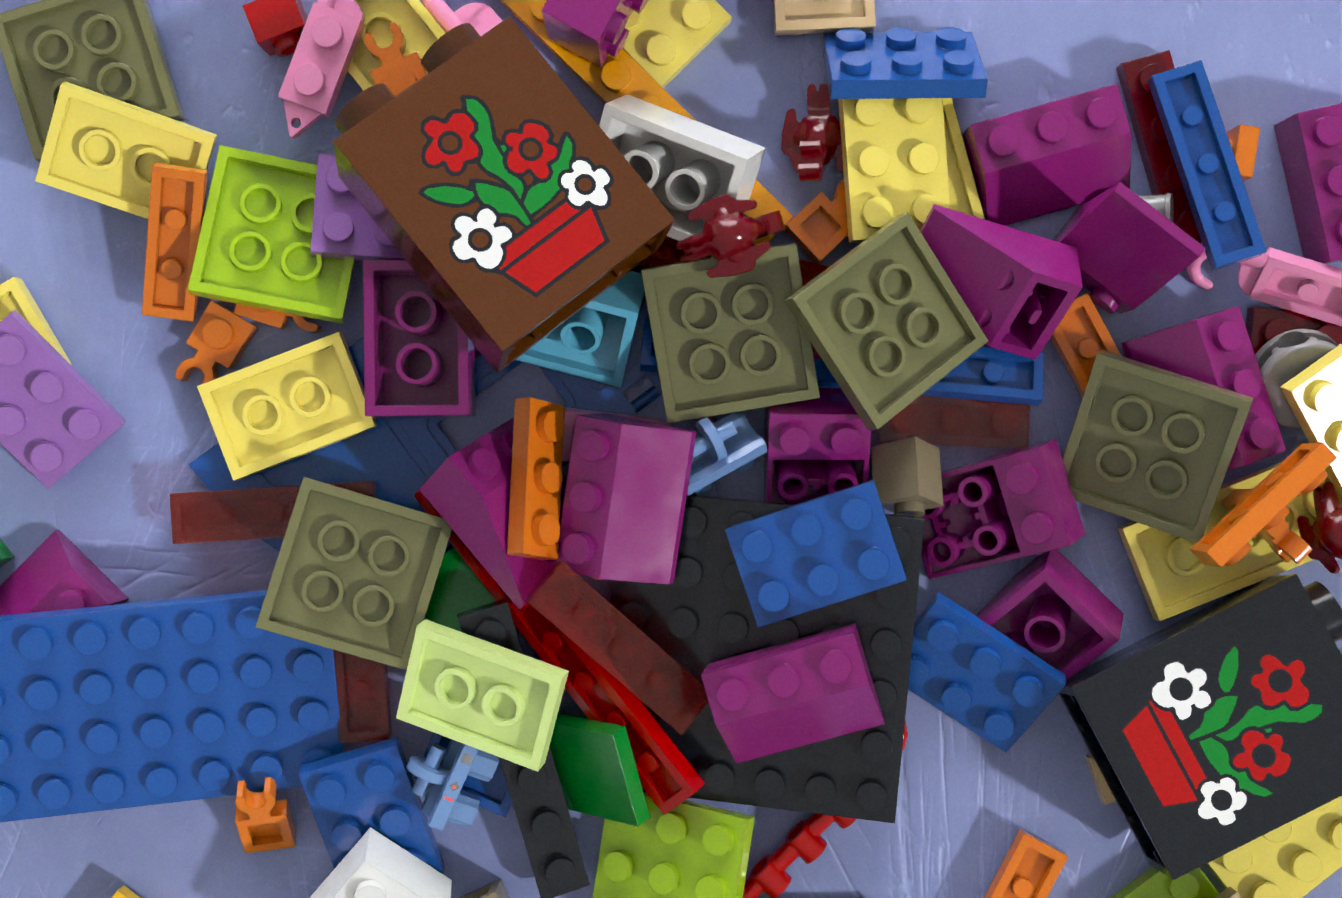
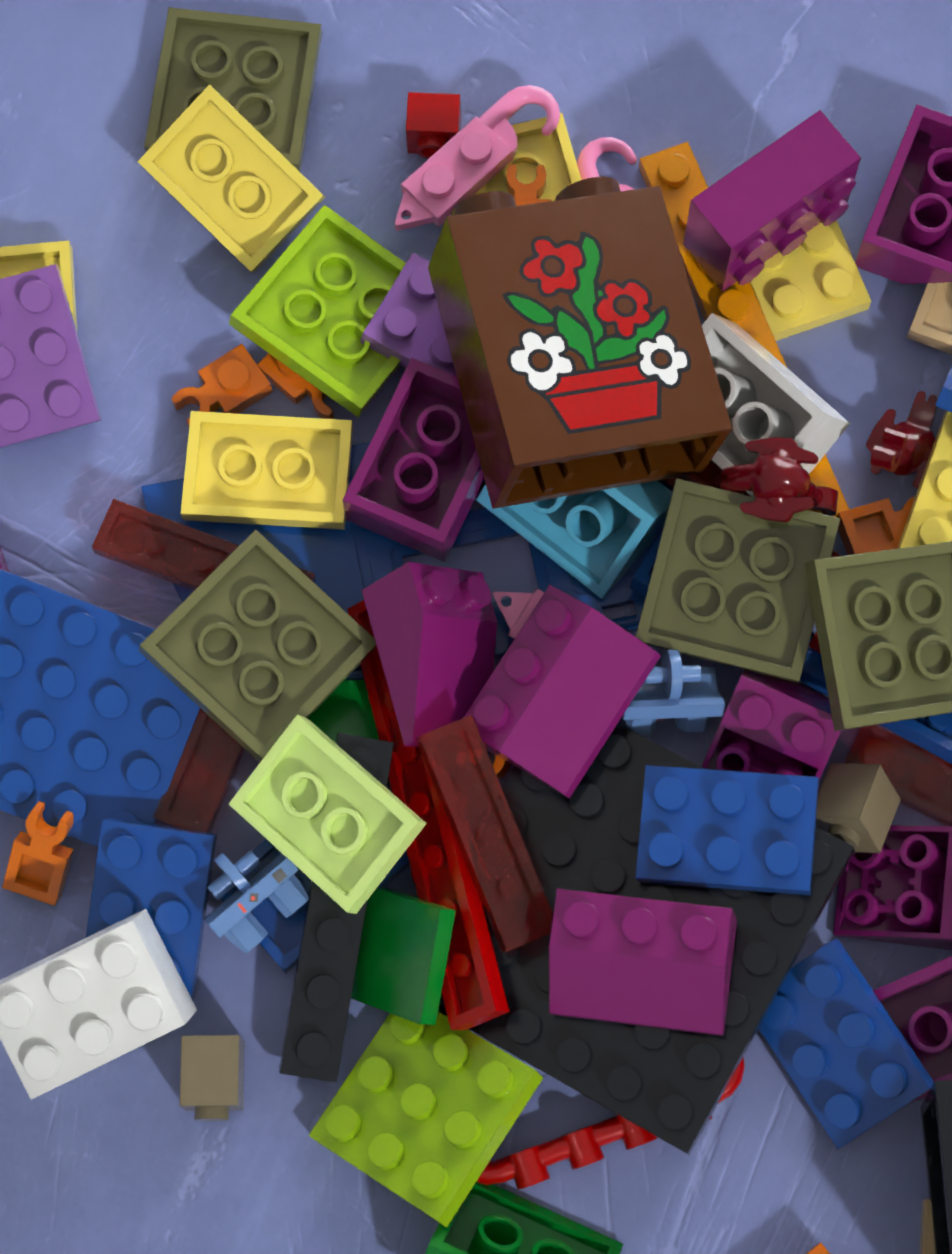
camera: 30 degrees right, 15 degrees down
(172, 240) = (238, 265): orange plate -> none
(536, 479) = (480, 631): orange plate -> none

